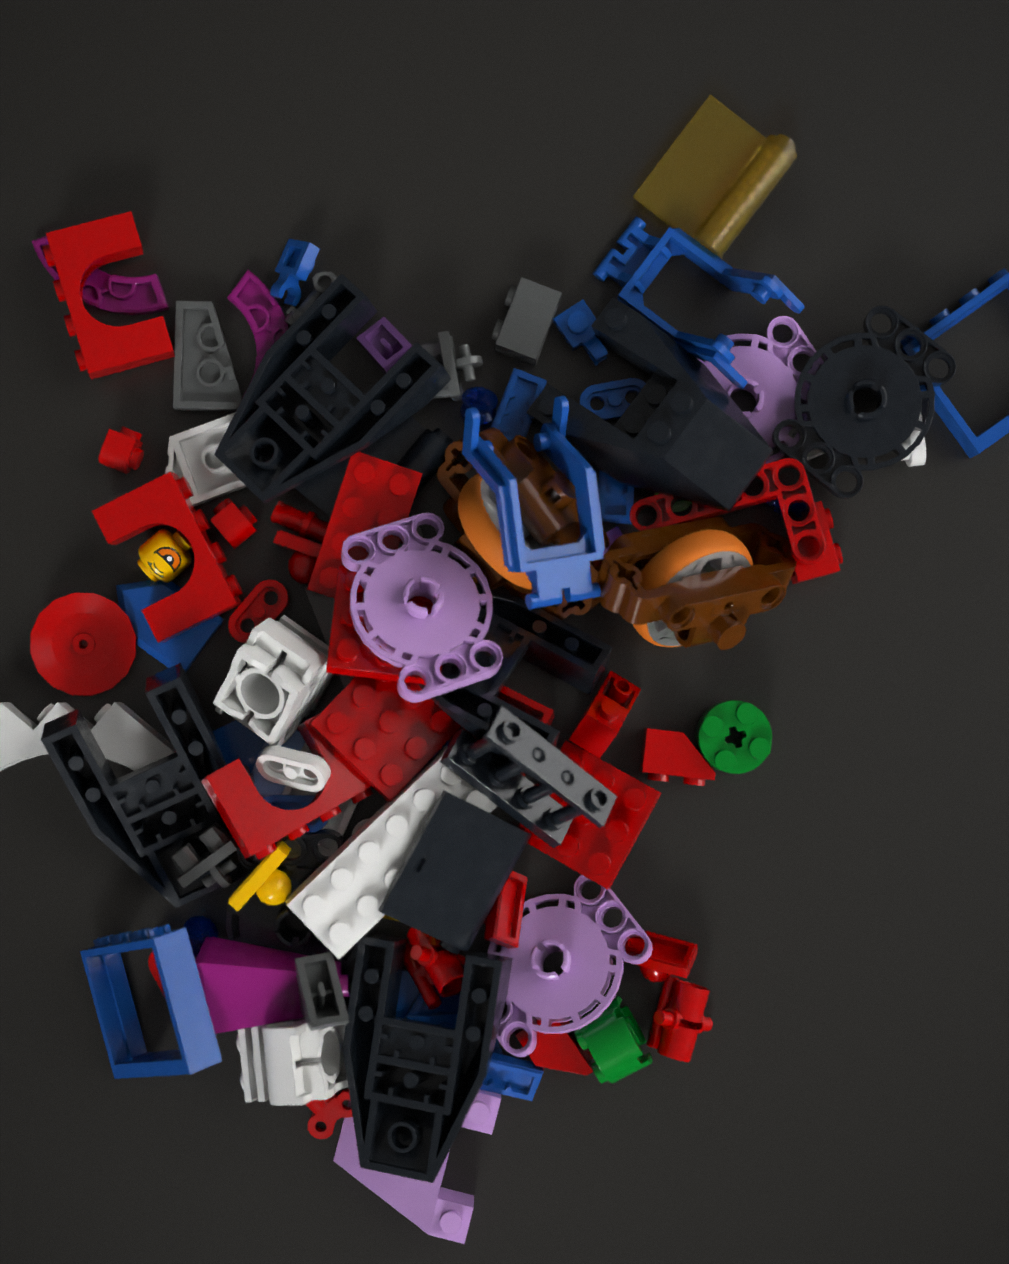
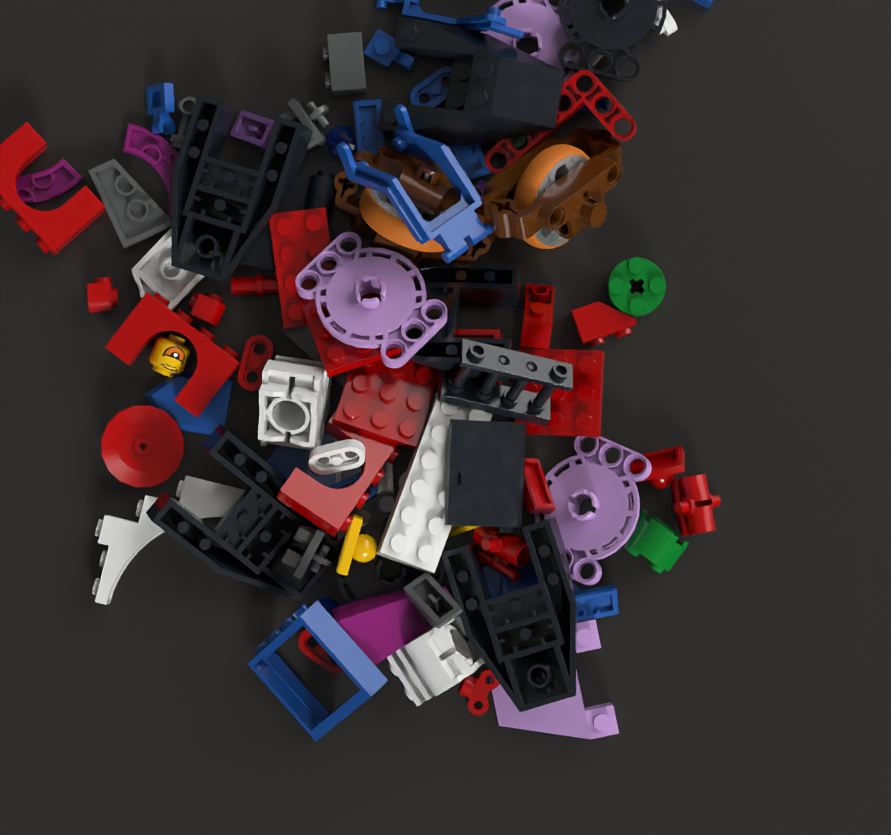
camera: 25 degrees left, 0 degrees up
(305, 556) = (269, 308): red tile -> none
(558, 1051) = (619, 568): red slope -> none
(809, 547) = (643, 125): red slope -> none

